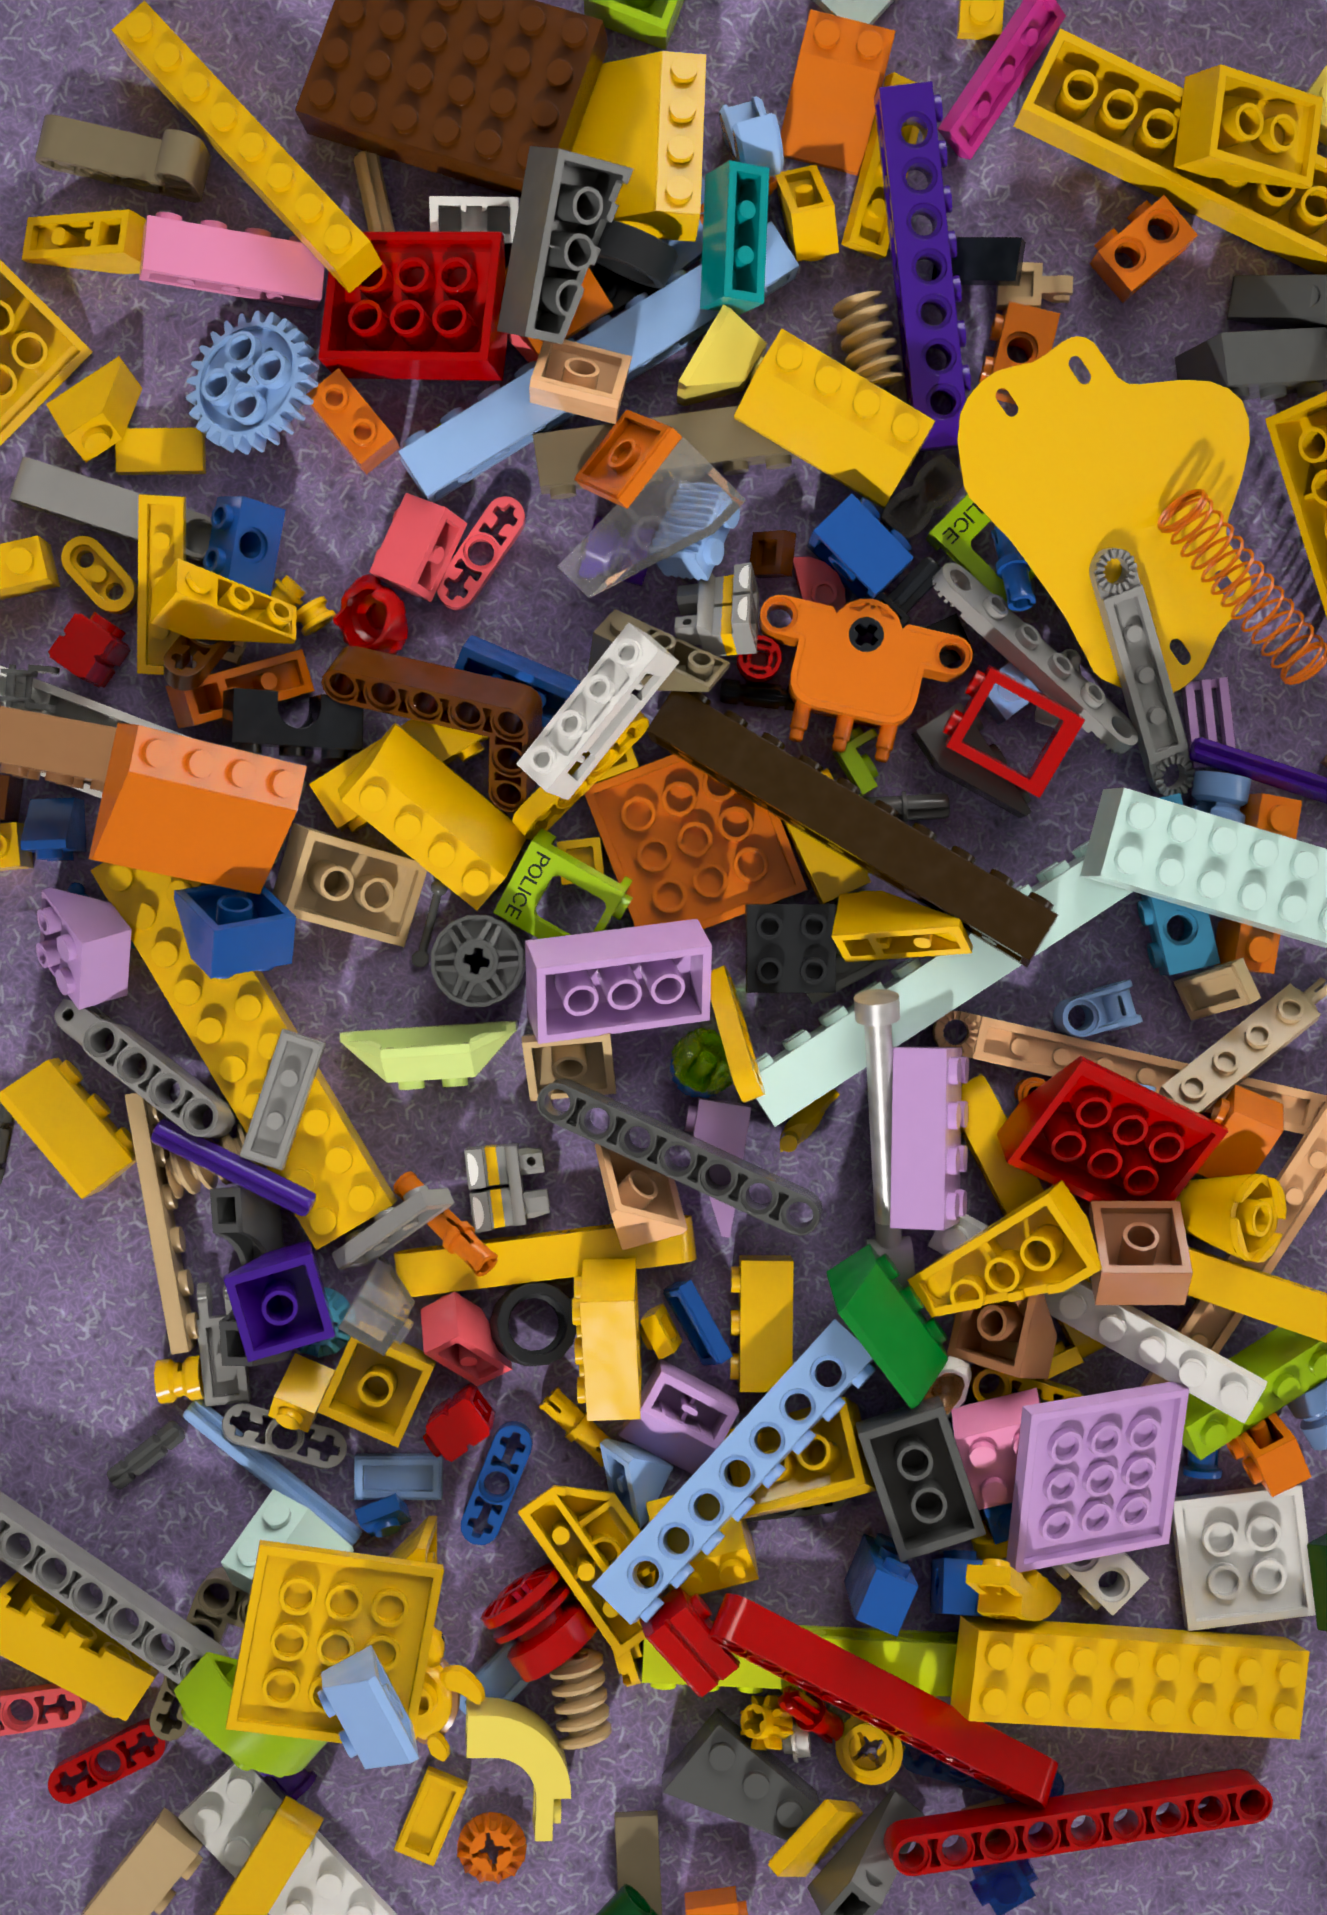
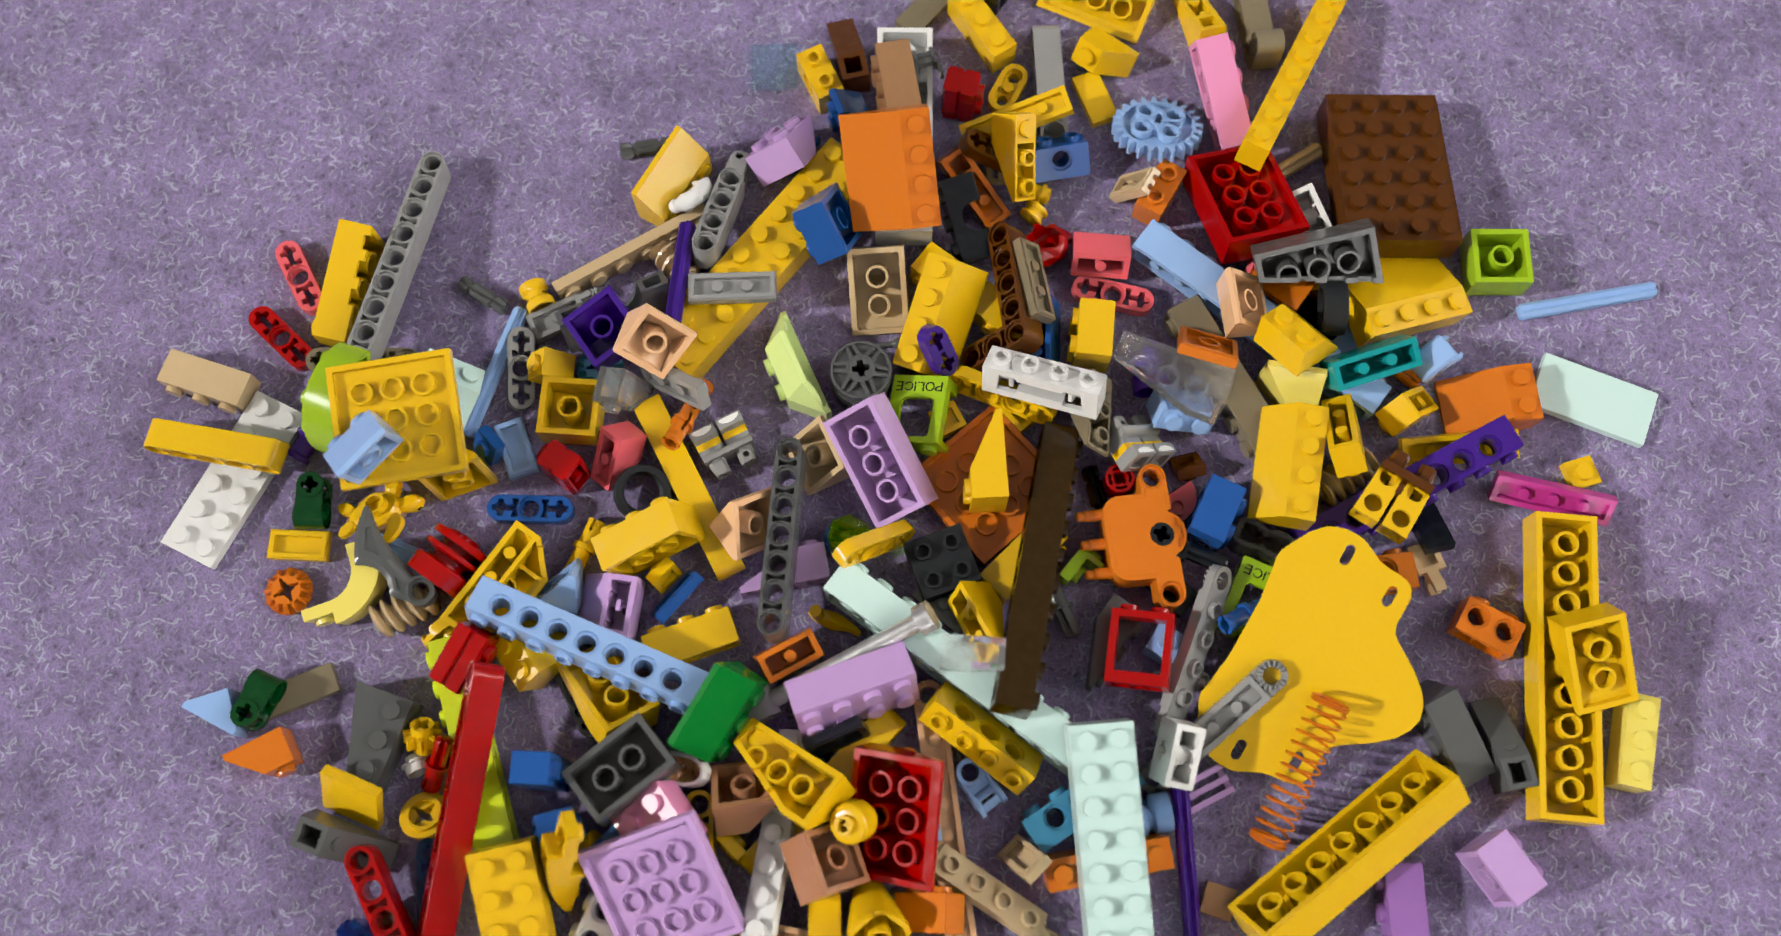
camera: 75 degrees right, 15 degrees down
(117, 1111) = (696, 195): none -> white piece
(334, 1245) = (652, 340): none -> light nougat slope
(349, 450) = (1135, 184): none -> tan tile
(383, 1789) = (312, 507): none -> dark green piece
(436, 664) = (1033, 281): none -> dark tan tile
(483, 832) = (941, 347): none -> dark purple beam
(494, 1721) = (373, 551): none -> dark grey piece
(540, 611) = (1091, 334): none -> yellow brick
(663, 332) = (1292, 340): none -> yellow slope
(694, 839) = (988, 479): none -> yellow slope
(824, 323) = (1344, 437): none -> yellow brick
(844, 1201) = (788, 655): none -> orange brick
(938, 295) = (1402, 488): none -> yellow hips
(951, 963) = (972, 653): none -> clear slope
(976, 1178) = (836, 737): none -> black tile
(1050, 987) = (981, 738): none -> yellow brick
(1105, 1199) = (853, 822): none -> yellow head
(1166, 738) = (1177, 753): none -> white brick

